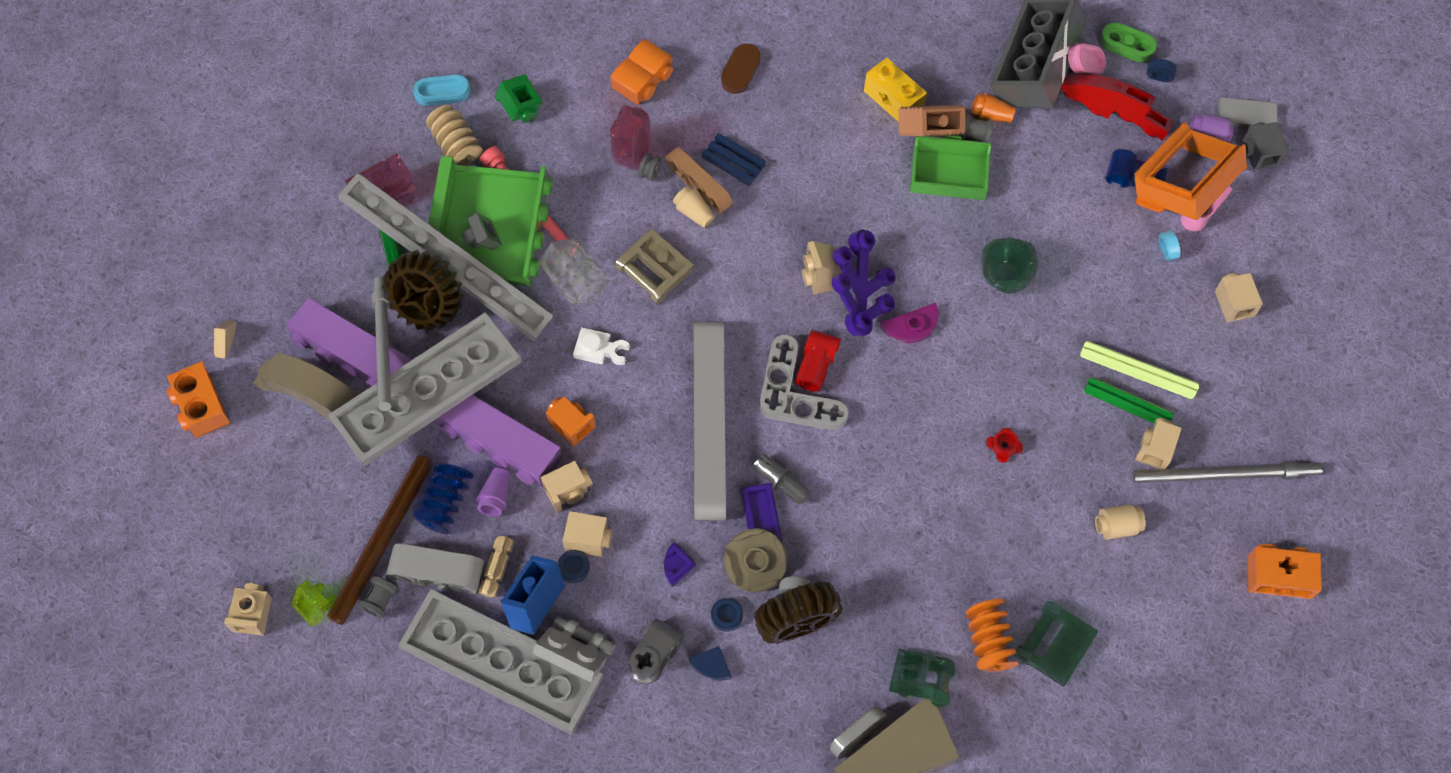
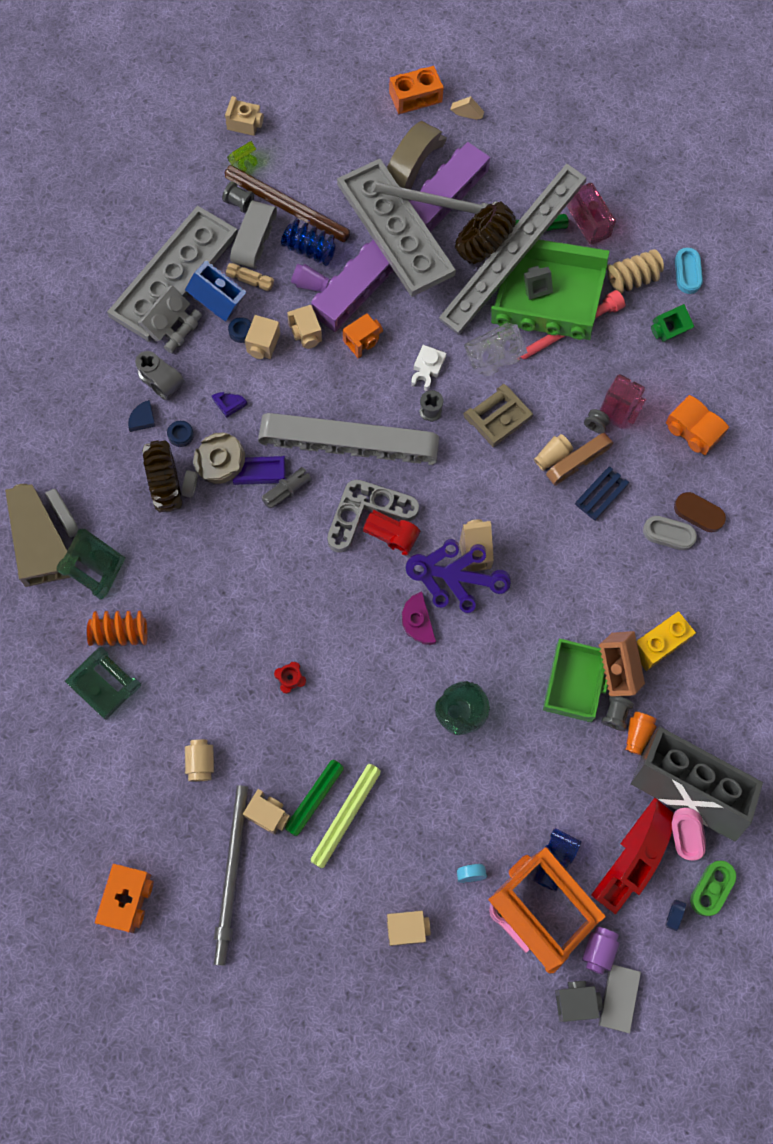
camera: 95 degrees right, 5 degrees up
(657, 326) = (431, 398): none -> dark grey bush
(768, 95) = (669, 533): none -> light grey tile

